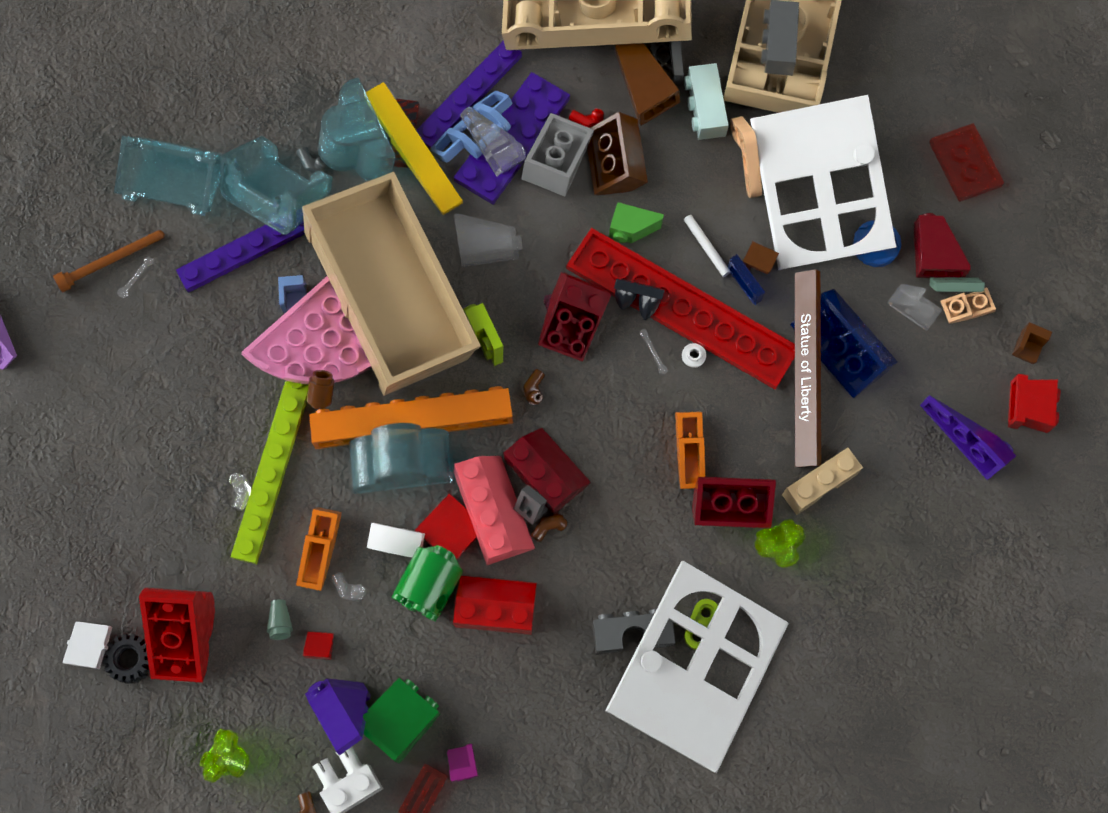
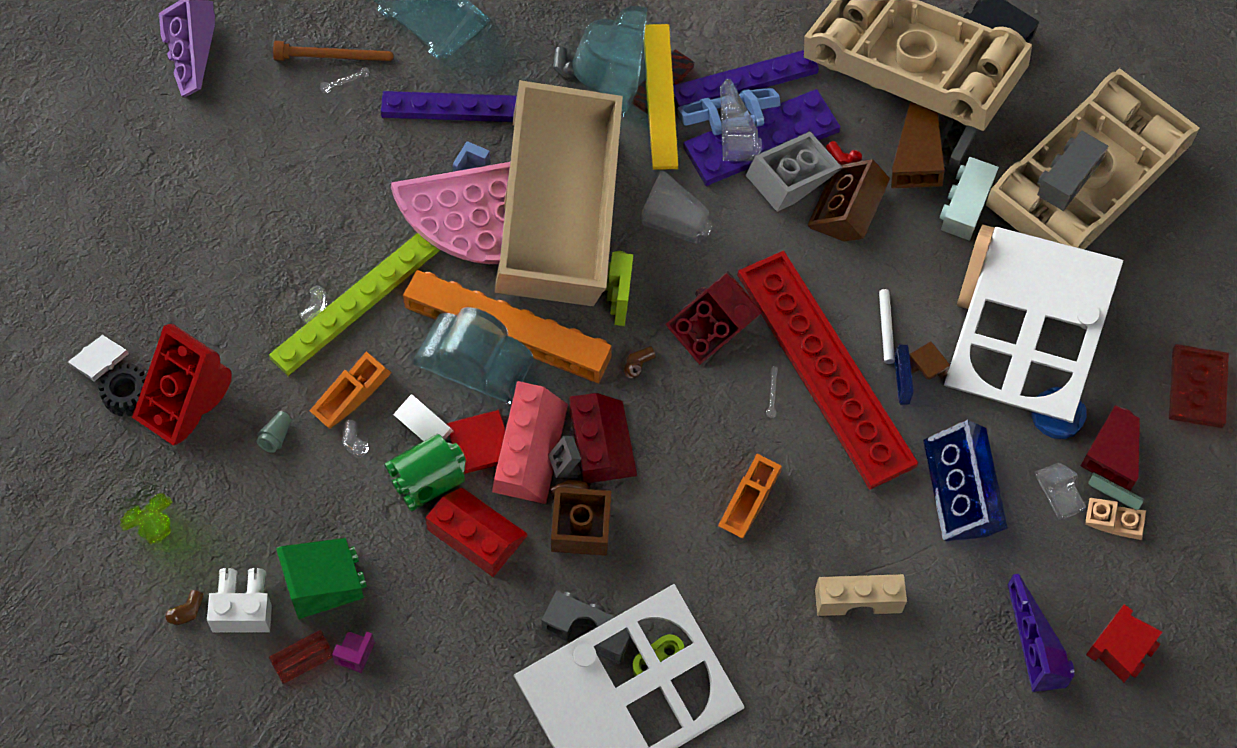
camera: 30 degrees right, 10 degrees down
(266, 188) = (504, 54): clear light blue windscreen -> none
(318, 645) = (294, 474): red slope -> none
(320, 389) = (440, 253): reddish brown brick -> none
(340, 710) = (273, 529): dark purple wedge -> none
(575, 549) = (581, 521): none -> reddish brown brick
(633, 223) = (826, 268): bright green slope -> none
(648, 299) = (795, 339): black tile -> none
(690, 361) = (809, 422): white plate -> none
(733, 502) = (759, 560): dark red slope -> none
(781, 543) = (782, 628): clear neon green plate -> none
(807, 369) = (910, 484): tile -> none
(1031, 342) = (1159, 587): reddish brown panel -> none

